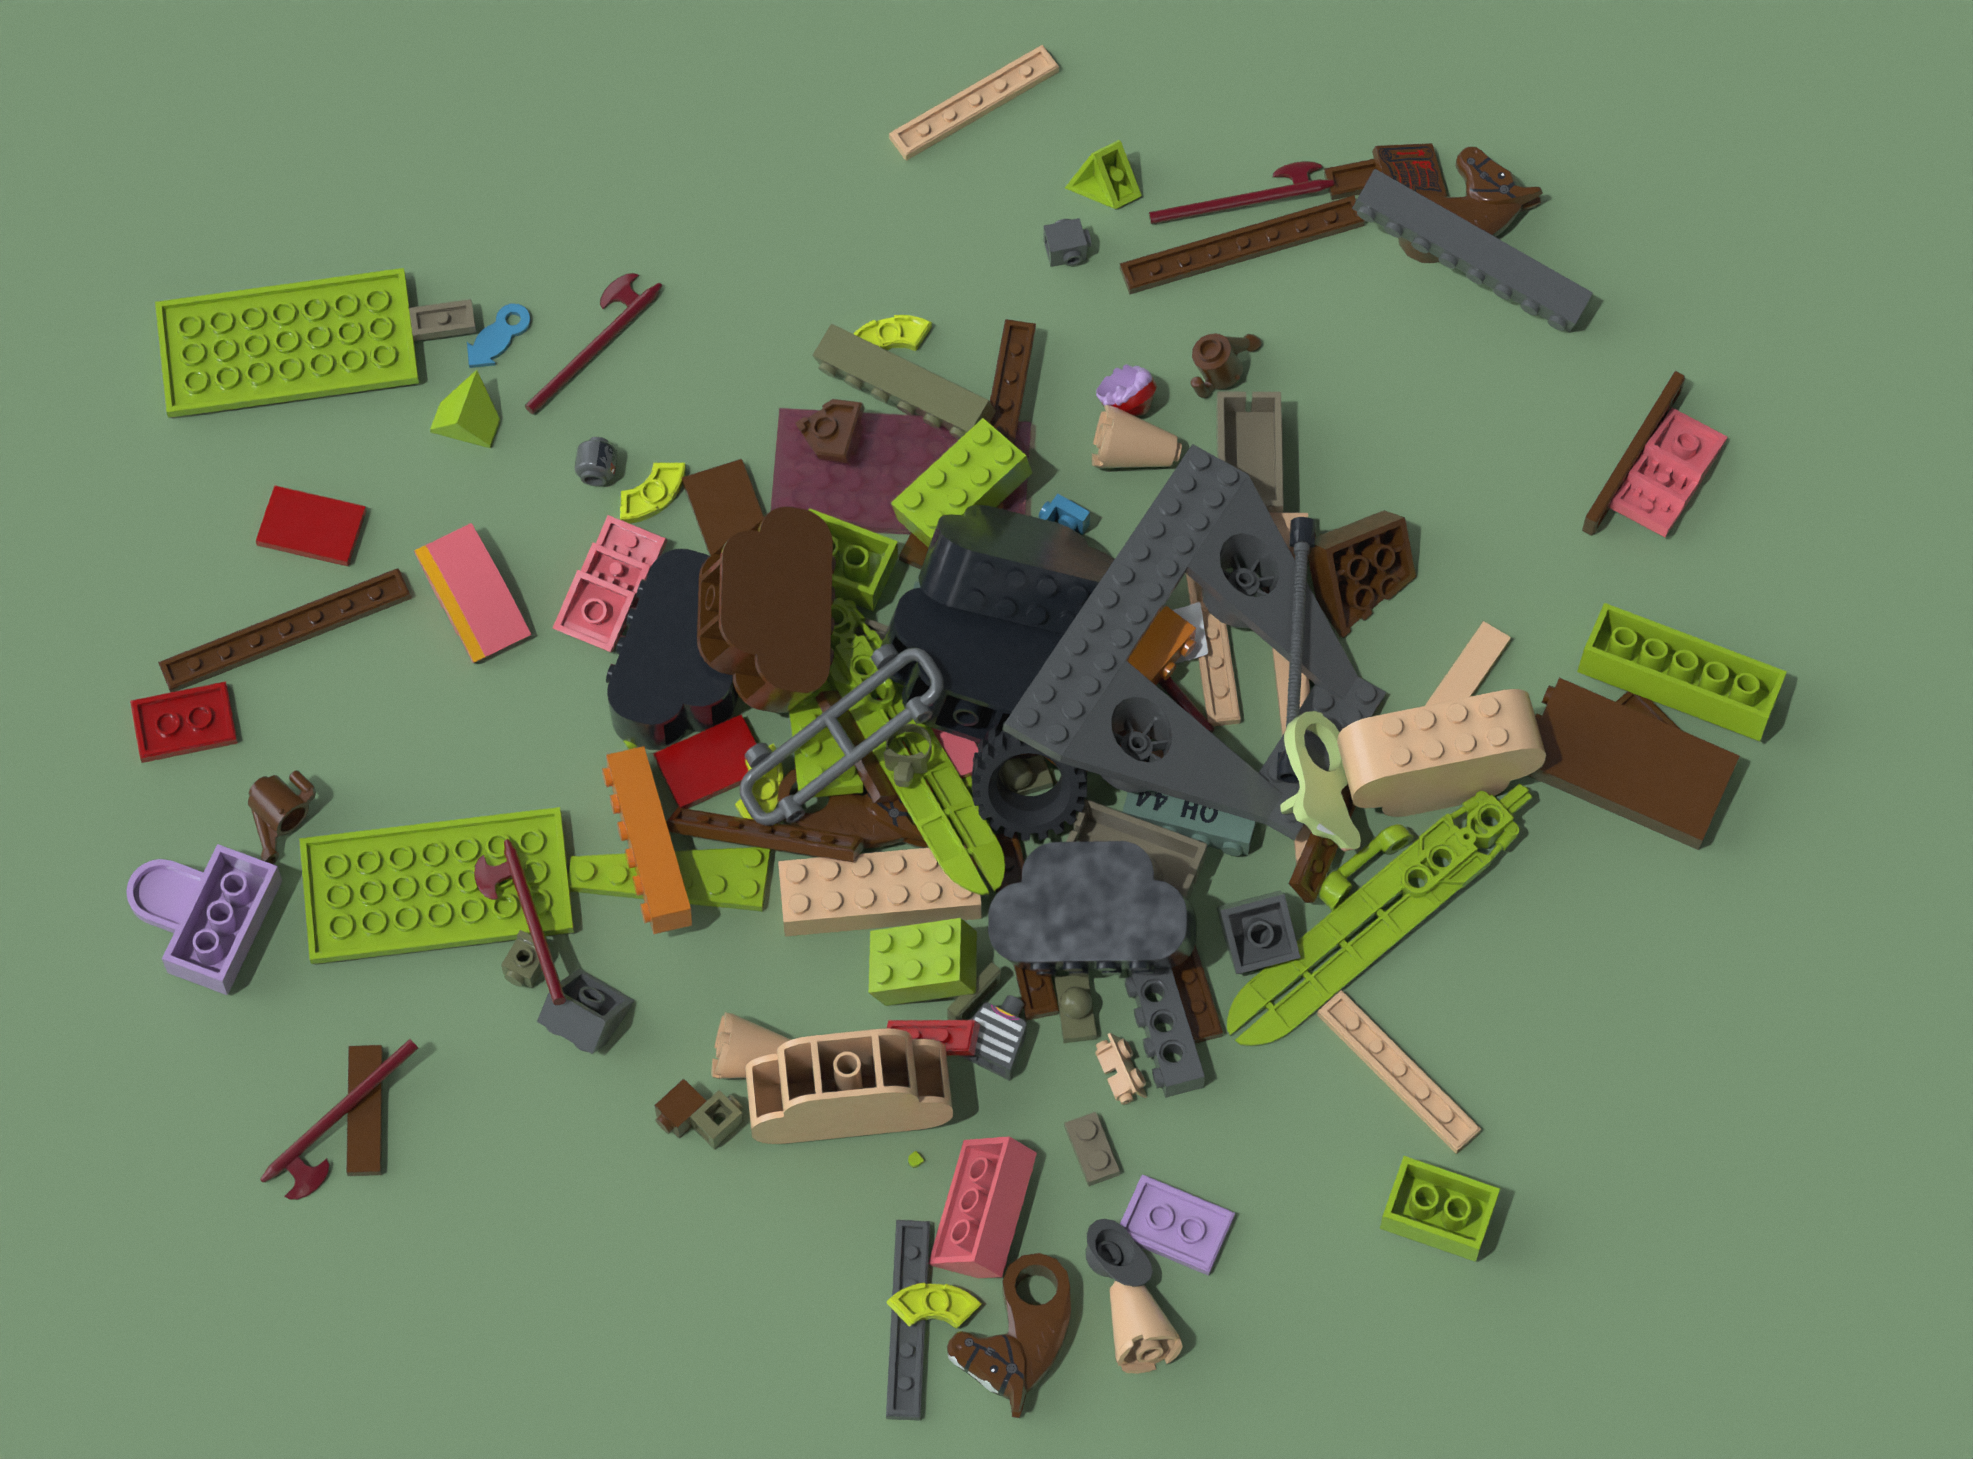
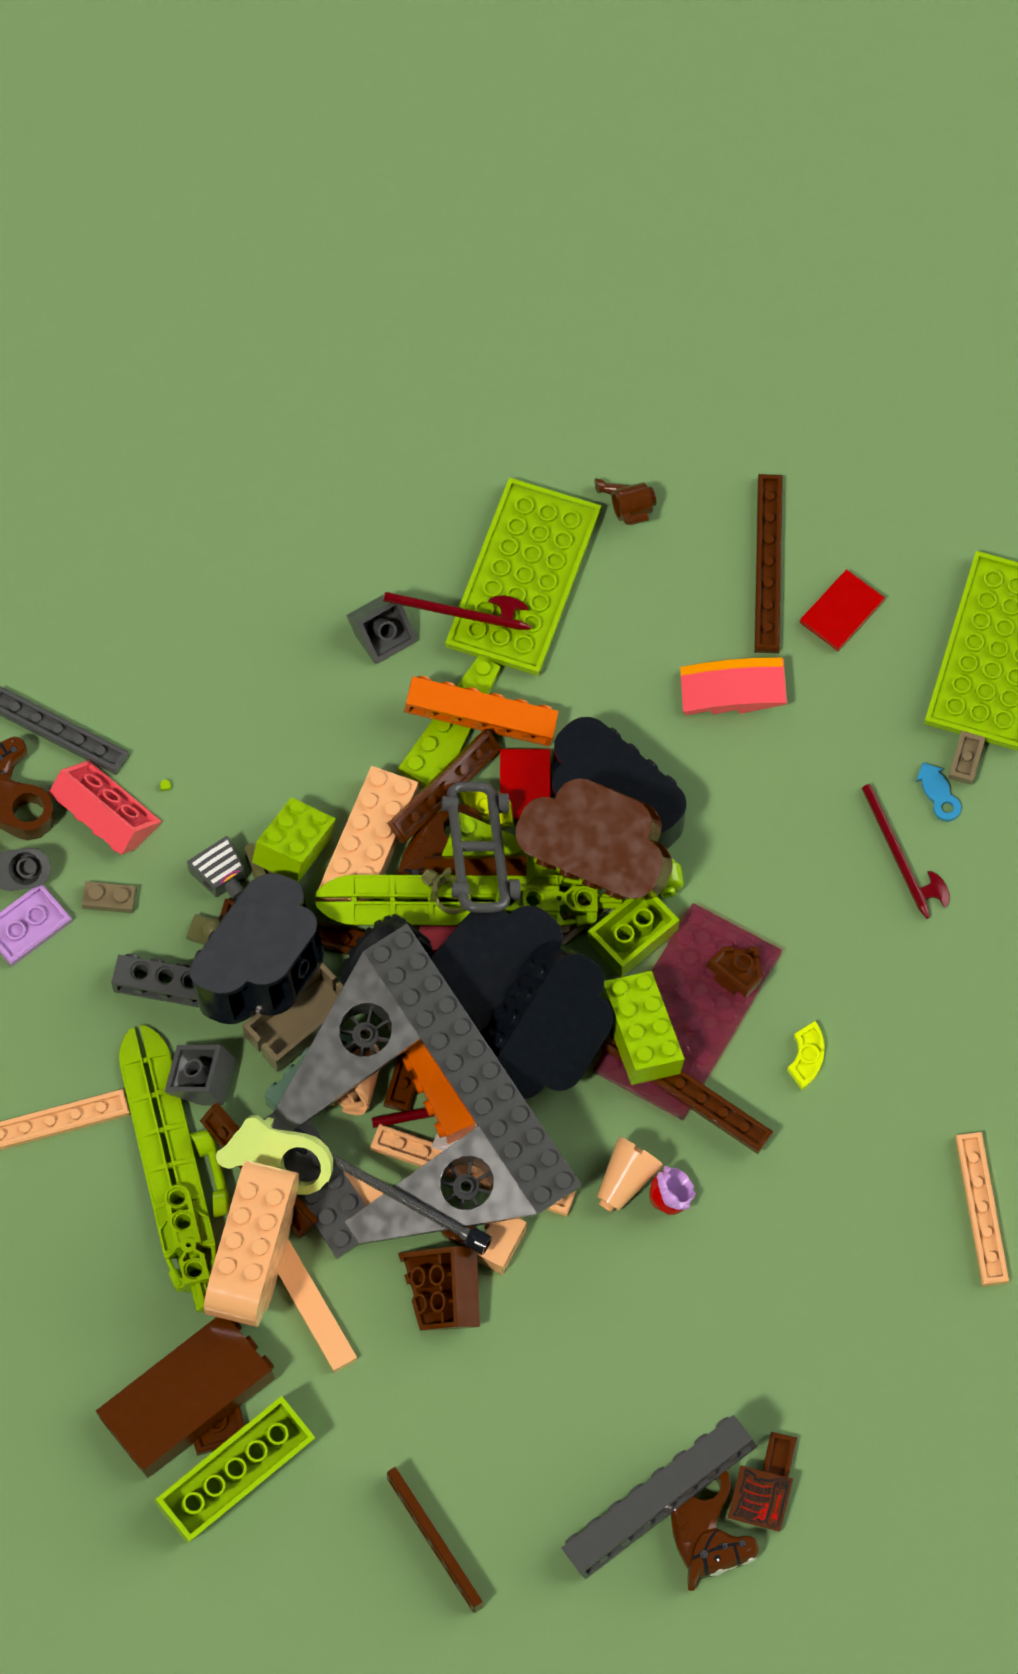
camera: 115 degrees right, 0 degrees up
(183, 722) = (730, 475): red tile -> none
(208, 911) = (572, 427): lavender brick -> none
(310, 1178) = (358, 424): dark red piece -> none
(365, 1118) = (387, 472): reddish brown tile -> none
(467, 414) = (878, 742): lime slope -> none
(522, 972) = (438, 595): olive brick -> none
(596, 461) = (798, 808): dark grey head -> none
(608, 584) = (703, 781): coral slope -> none
(653, 494) = (756, 840): neon yellow tile -> none
(676, 1107) = (279, 654): reddish brown brick -> none
(717, 1106) = (260, 666): olive brick -> none
(722, 502) = (718, 880): reddish brown tile -> none
(739, 1043) = (292, 712): light nougat cone -> none
(848, 1087) = (222, 747): light nougat brick -> none
(900, 382) = (753, 1034): olive brick -> none
(933, 1301) = (58, 746): neon yellow tile -> none
(957, 1035) = (239, 824): red tile -> none
(1066, 242) = (822, 1212): dark grey brick -> none
(1066, 513) = (594, 1105): dark azure bracket -> none
(1106, 177) = (863, 1273): lime slope -> none
(1117, 1057) = (145, 942): light nougat hinge -> none
(1197, 999) = (187, 1017): reddish brown tile -> none
(1219, 361) = (662, 1271): reddish brown piece -> none
(1240, 245) = (762, 1340): reddish brown tile -> none
(1253, 441) = (572, 1251): dark tan piece -> none
(1296, 171) = (805, 1418): dark red piece -> none
(1668, 472) = (407, 1559): coral slope -> none

